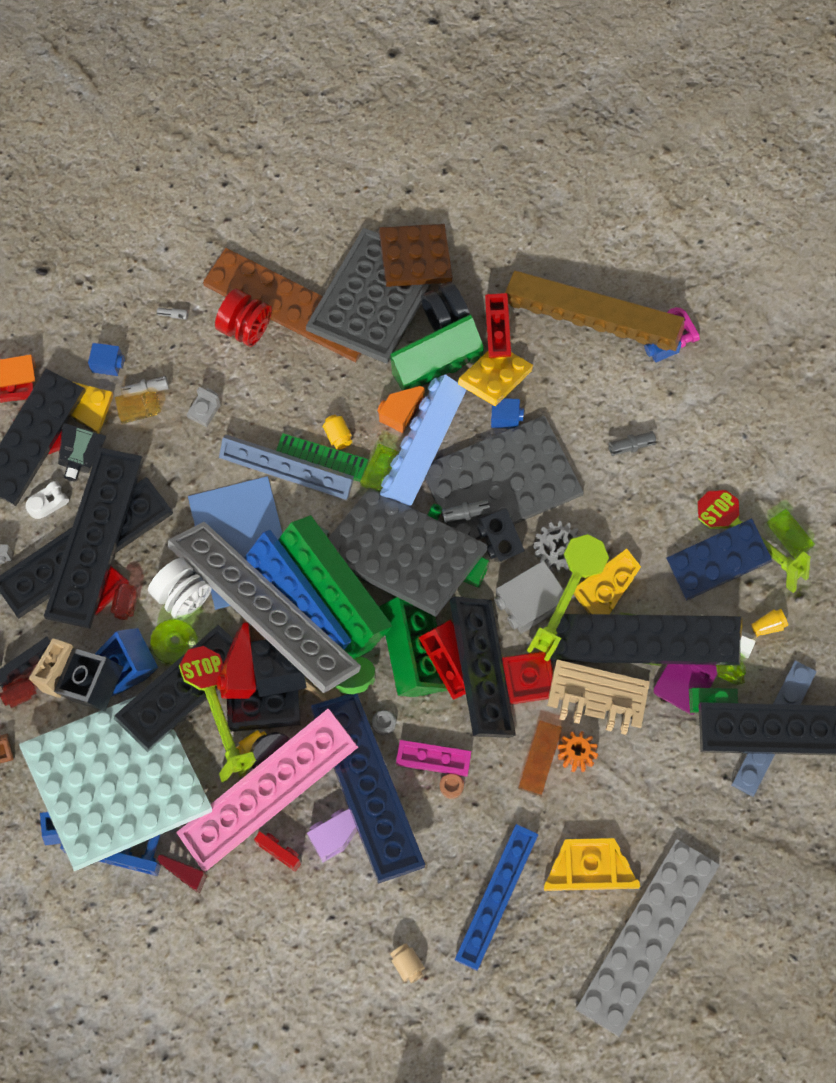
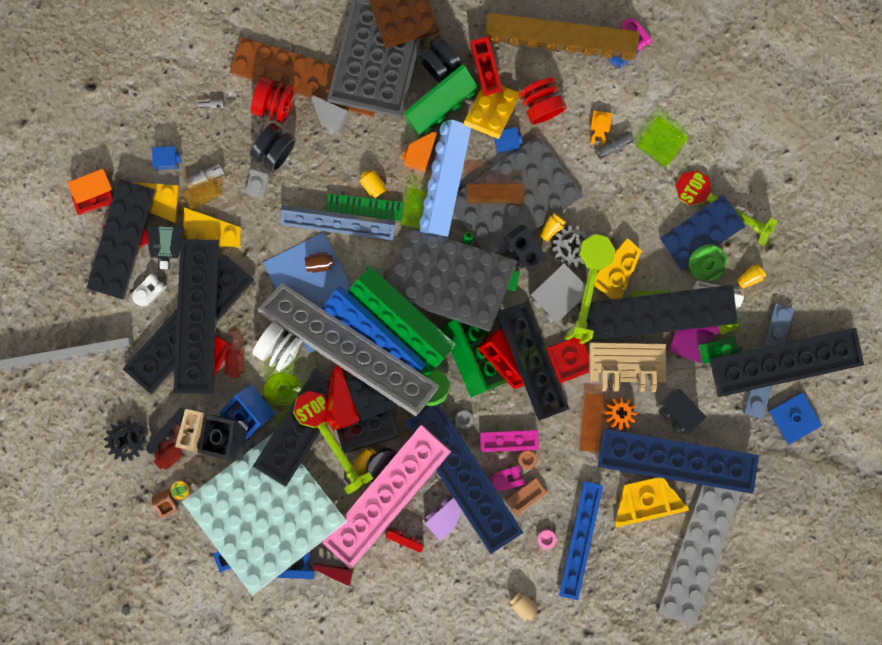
camera: 15 degrees left, 15 degrees up
(20, 734) = (180, 490): none -> tile
(128, 440) = (204, 227): none -> yellow wing
(230, 368) = (272, 147): none -> black wheel
(253, 506) = (319, 262): none -> reddish brown brick
(306, 349) = (330, 116): none -> light grey slope
(412, 804) = (500, 480): none -> dark pink plate
(440, 830) = (526, 496): none -> nougat tile
(454, 887) = (546, 538): none -> bright pink tile
(466, 510) = (493, 233): dark grey pin -> none
(478, 468) = (495, 193): none -> clear orange tile
(539, 518) = (552, 226): none -> yellow cone
(556, 376) = (541, 98): none -> red wheel
(620, 418) = (600, 124): none -> light orange plate
(638, 822) = (678, 461): none -> dark blue plate
(651, 762) = (680, 411): none -> black brick
(690, 451) = (662, 141): none -> clear neon green tile
(719, 594) = (708, 262): none -> bright green tile
(790, 533) = (754, 197): clear neon green plate -> none
(795, 803) = (795, 418): none -> blue plate

